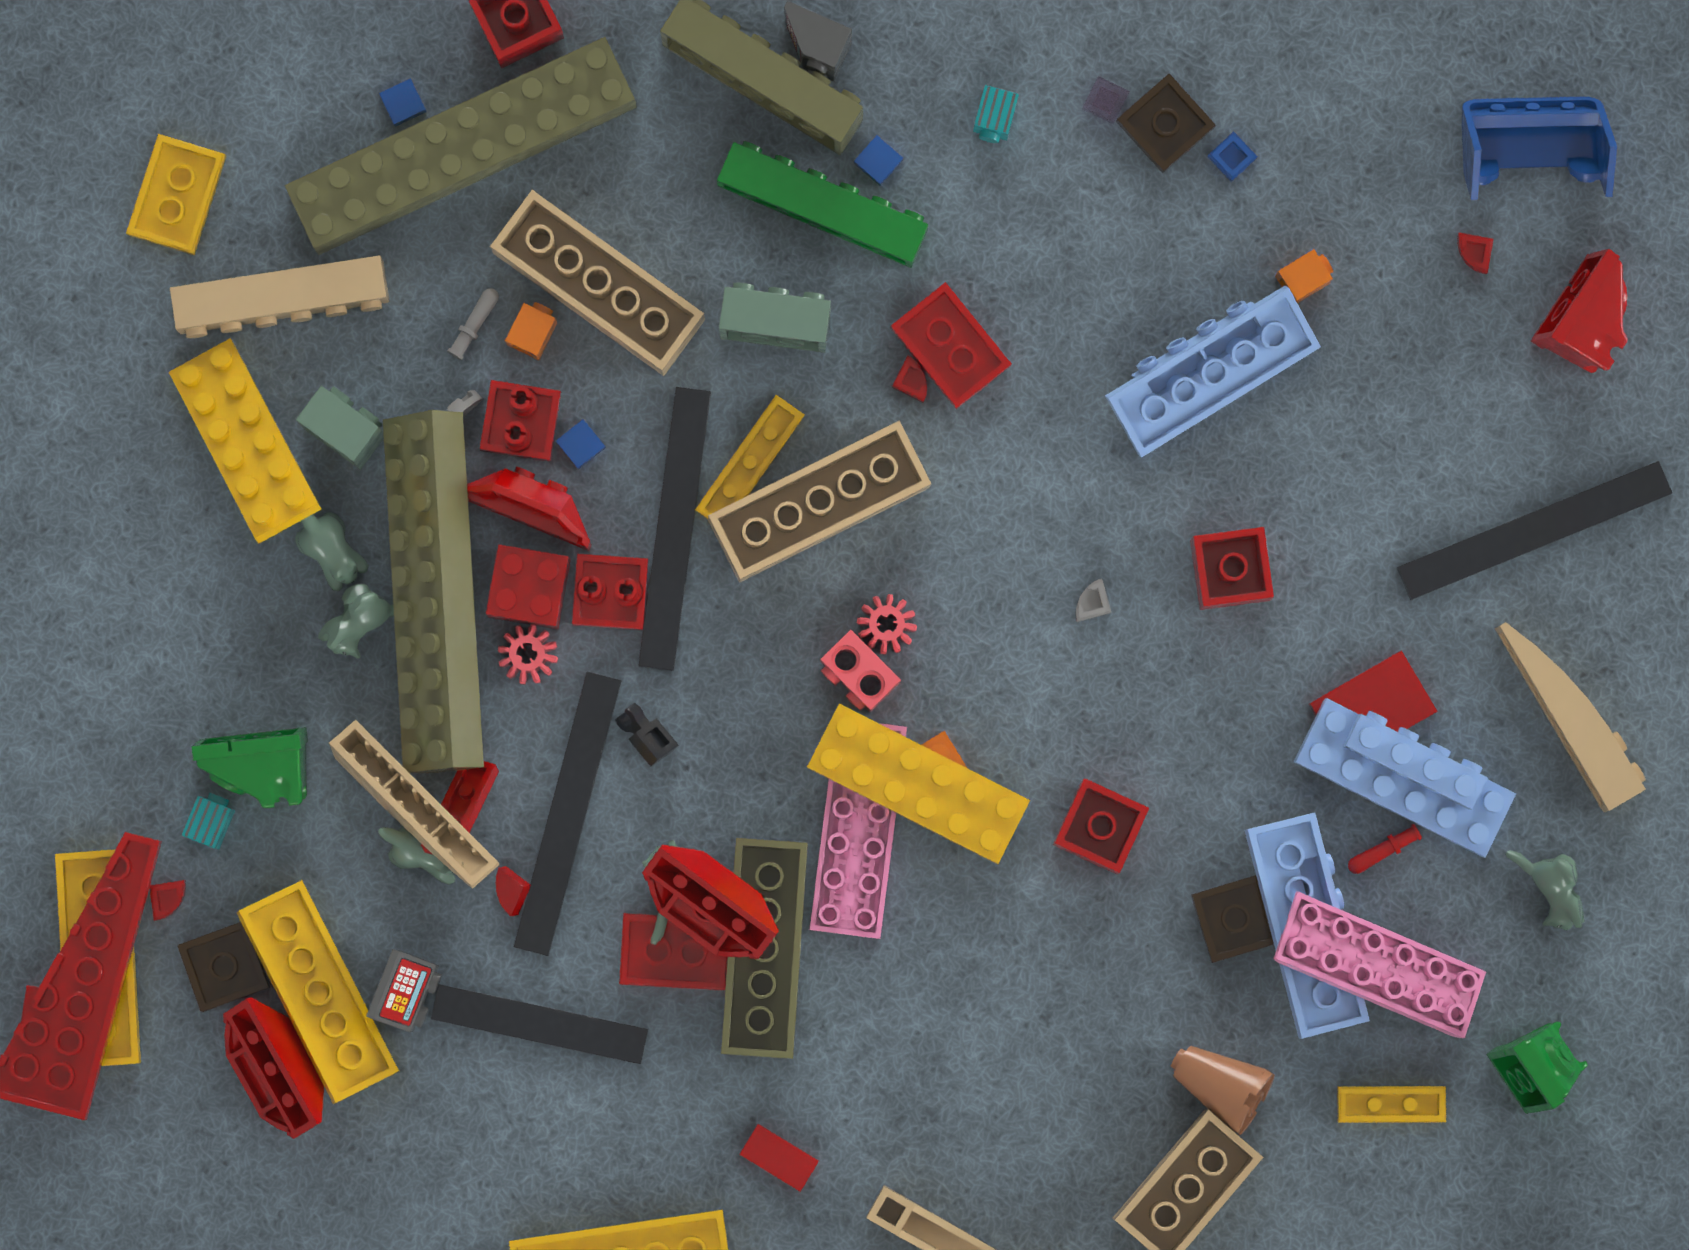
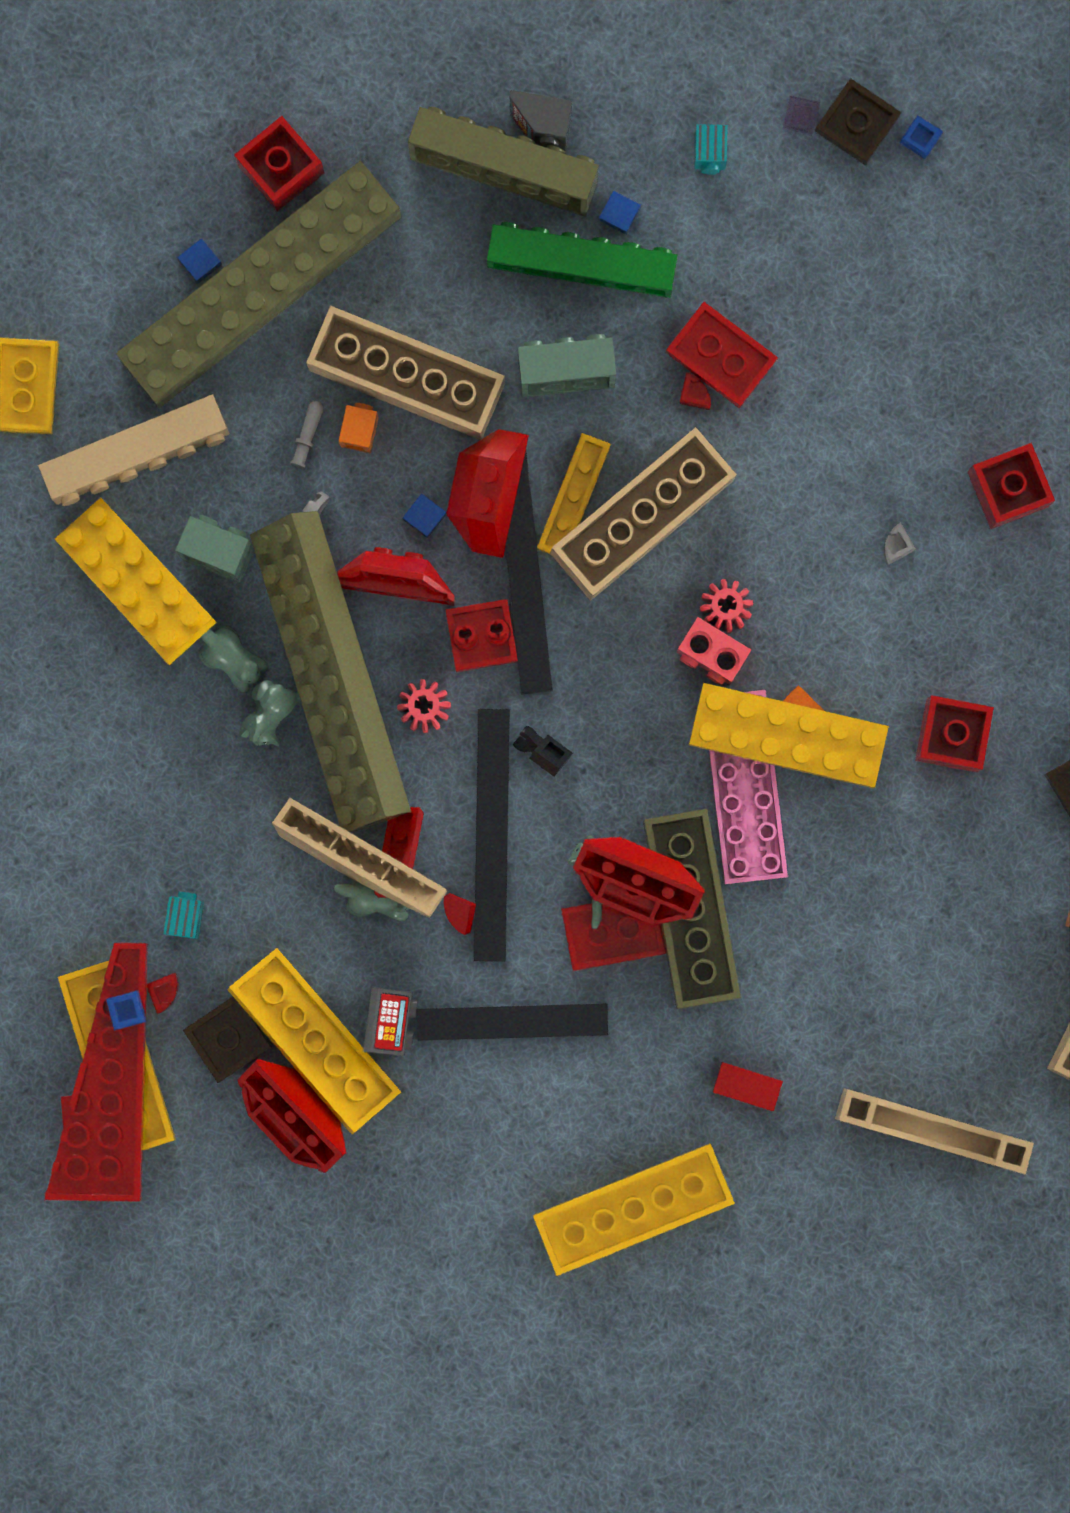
camera: 10 degrees left, 0 degrees up
(120, 909) = (126, 1010): none -> blue tile
(257, 764) = (214, 857): green piece -> none
(520, 420) = (368, 507): red plate -> none
(528, 586) = (410, 648): red brick -> none
(655, 433) = (487, 490): none -> red wedge
(1211, 369) = (950, 320): light blue plate -> none
(1306, 275) = (1009, 223): orange brick -> none

